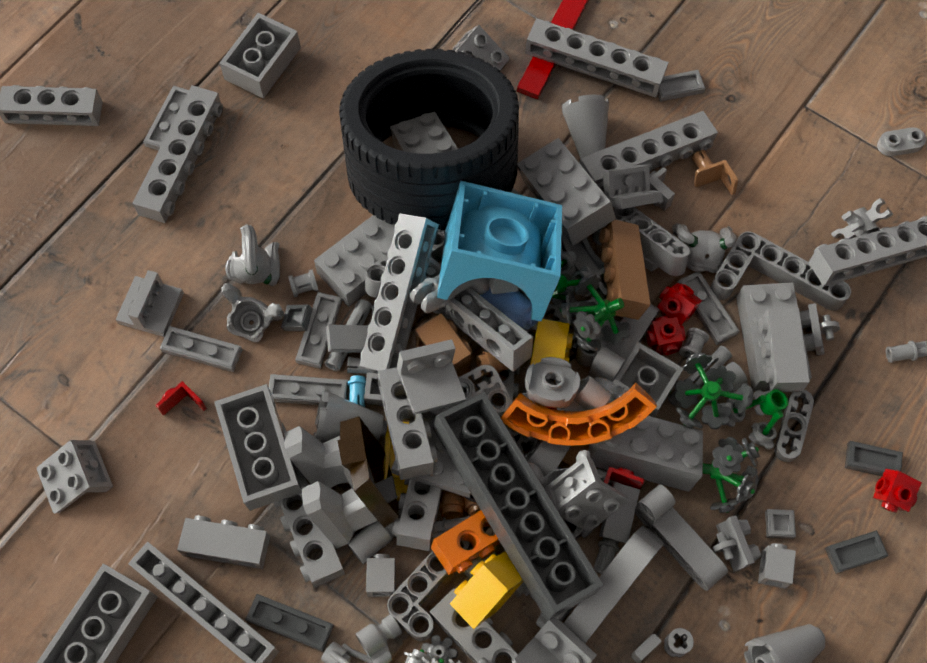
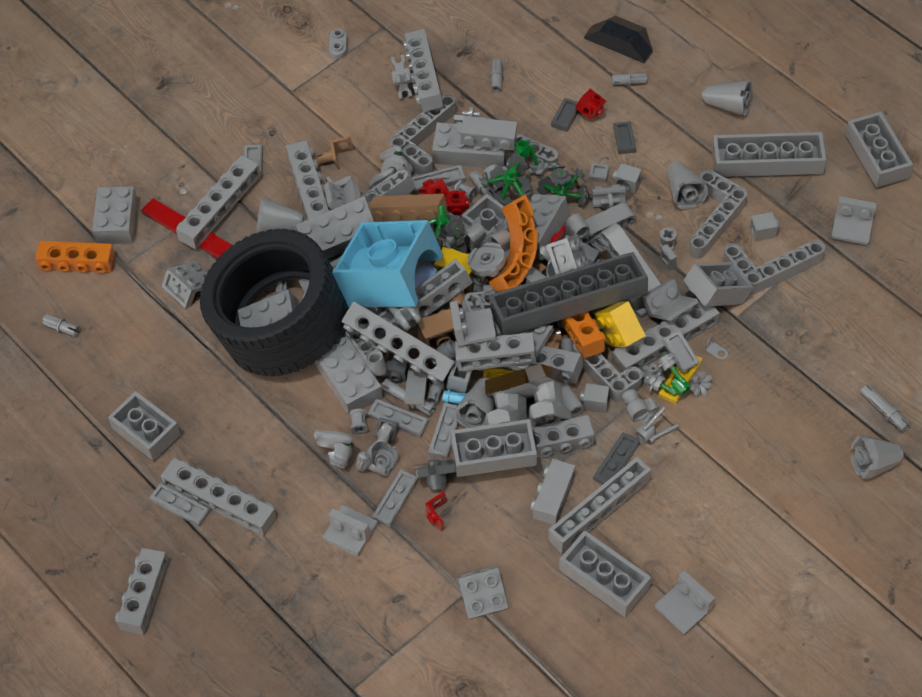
camera: 75 degrees left, 10 degrees down
(230, 378) = (435, 472): none -> dark grey plant

